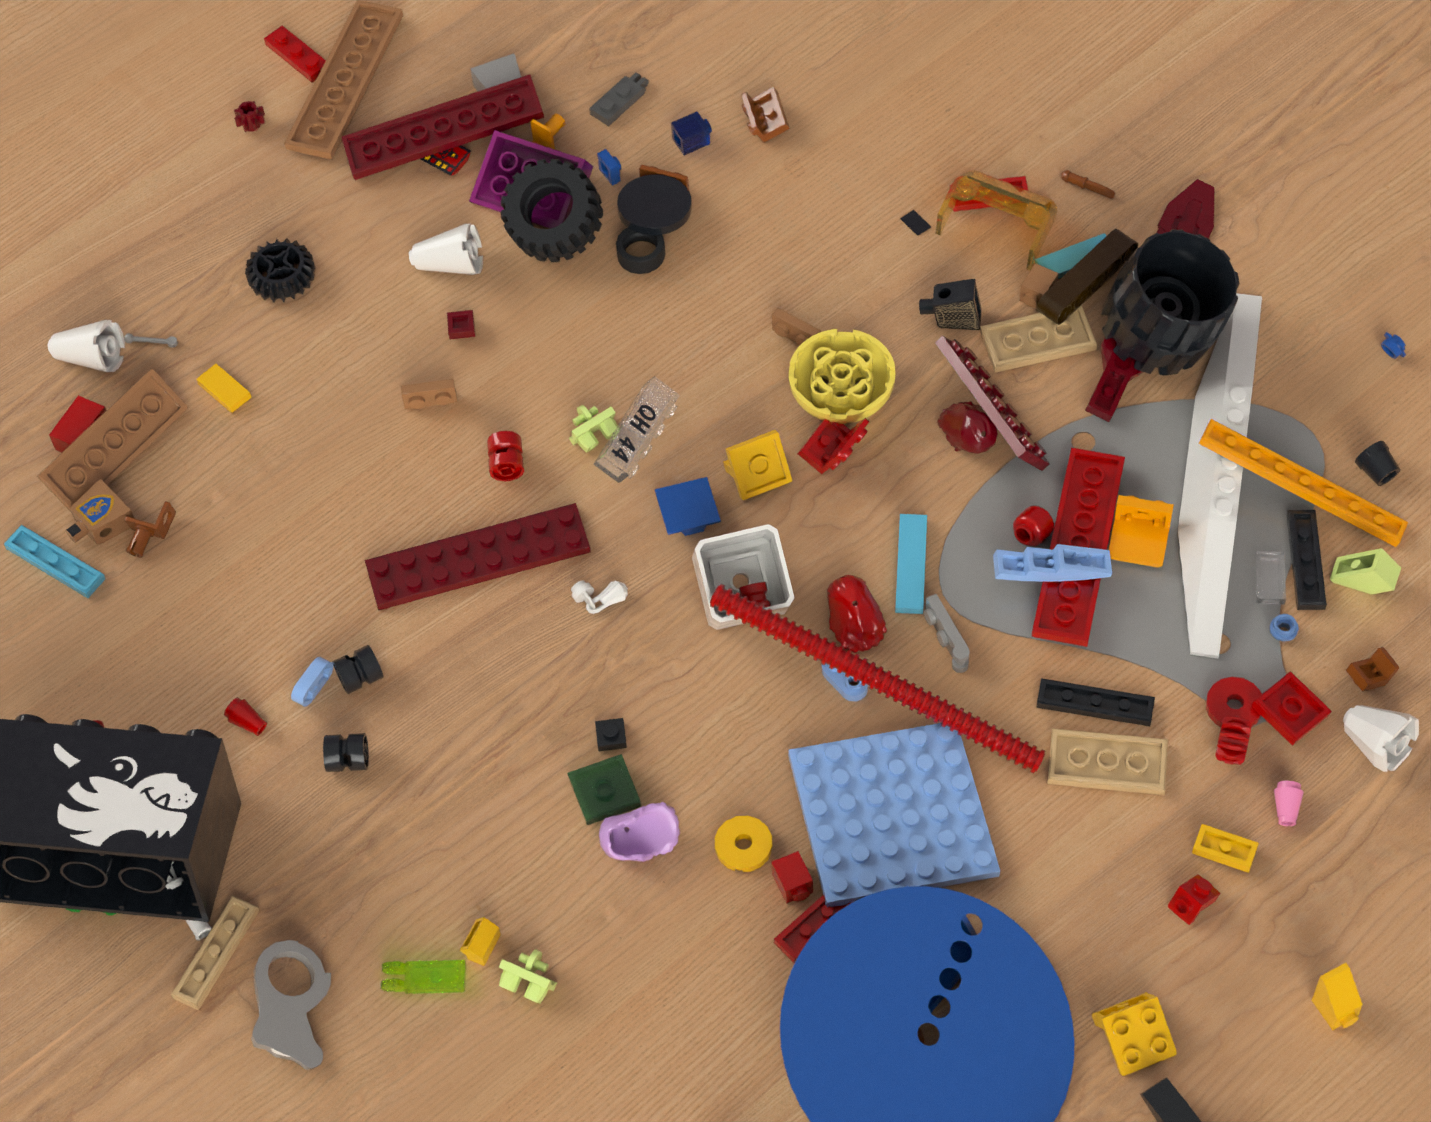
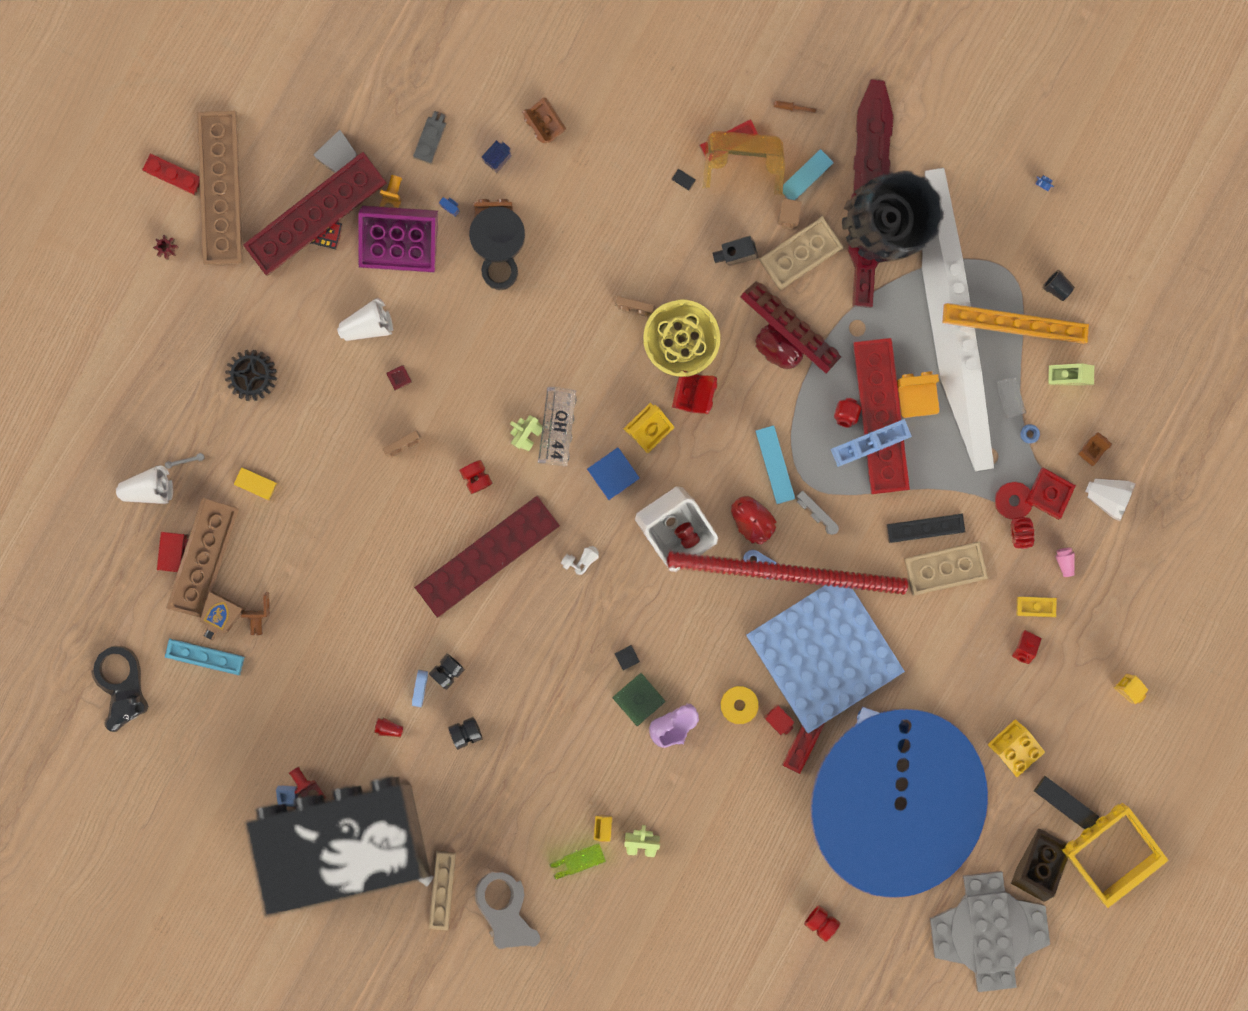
camera: 25 degrees left, 30 degrees up
(530, 189) = (414, 289): black tyre -> none
(1086, 276) = (822, 196): dark brown beam -> none
(1306, 560) = (1030, 375): black tile -> none

